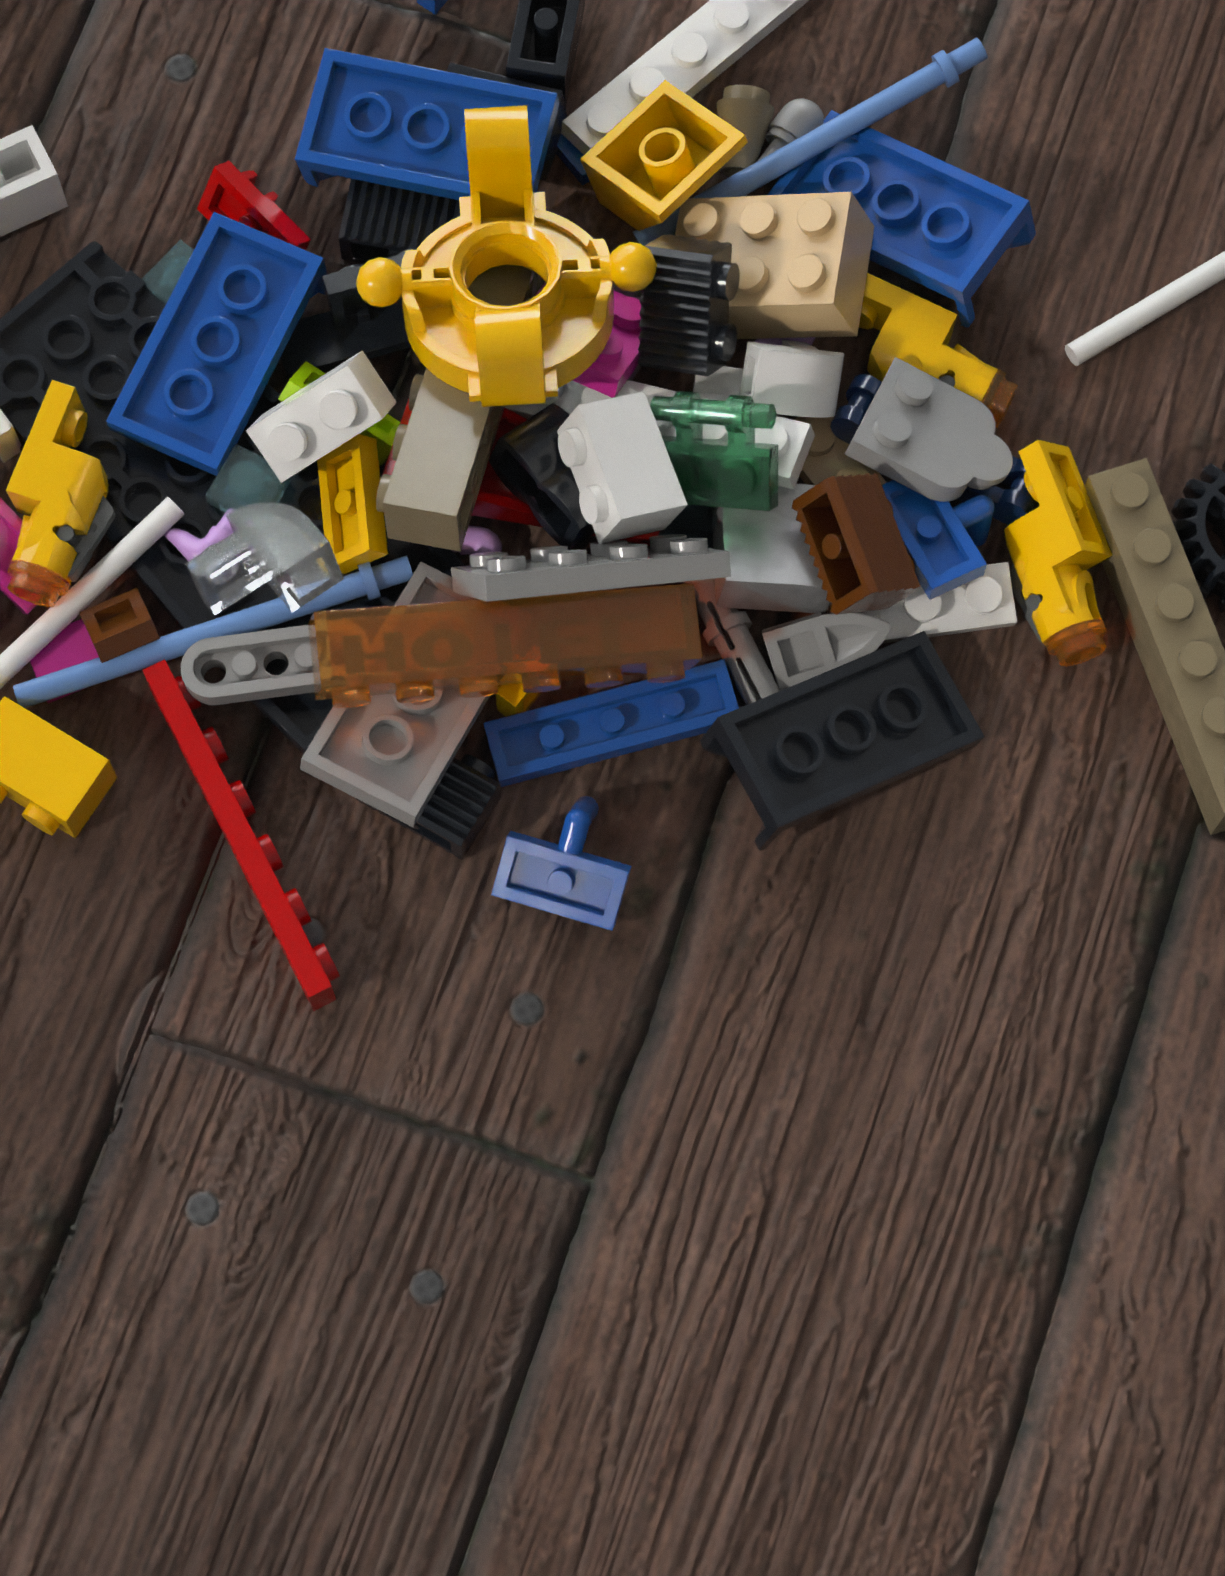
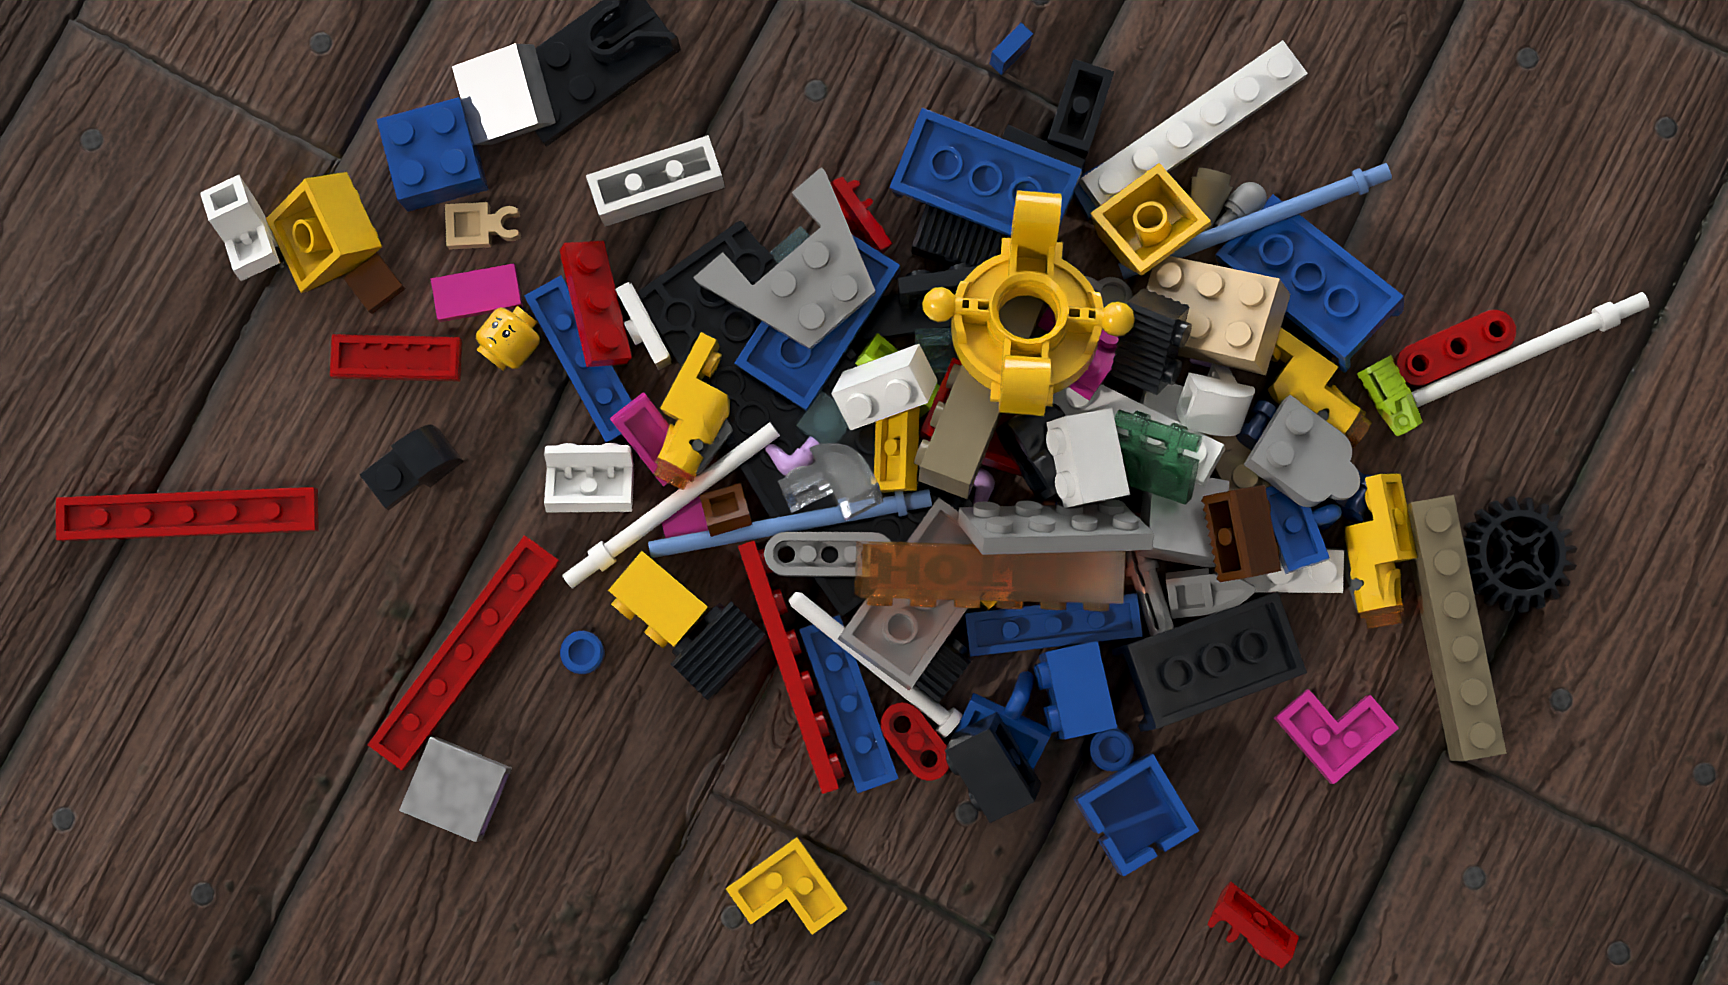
camera: 10 degrees right, 10 degrees up
(134, 824) = (718, 650): none -> black brick
(200, 302) = (811, 286): none -> light grey wing
(272, 1131) = (789, 876): none -> yellow plate
(333, 876) = (849, 710): none -> blue plate
(396, 367) = (937, 347): none -> clear light blue plate
(411, 838) = (945, 719): none -> white bar
(439, 914) = (915, 741): none -> red plate
(551, 927) = (992, 768): none -> black brick
(656, 799) = (1075, 691): none -> blue brick
(722, 887) = (1111, 749): none -> blue tile
(768, 961) = (1135, 811): none -> blue piece
(988, 1110) = (1263, 930): none -> red plate
(1034, 830) = (1334, 744): none -> dark pink plate
(1038, 349) = (1391, 395): none -> lime hinge
(1104, 297) = (1439, 357): none -> red plate

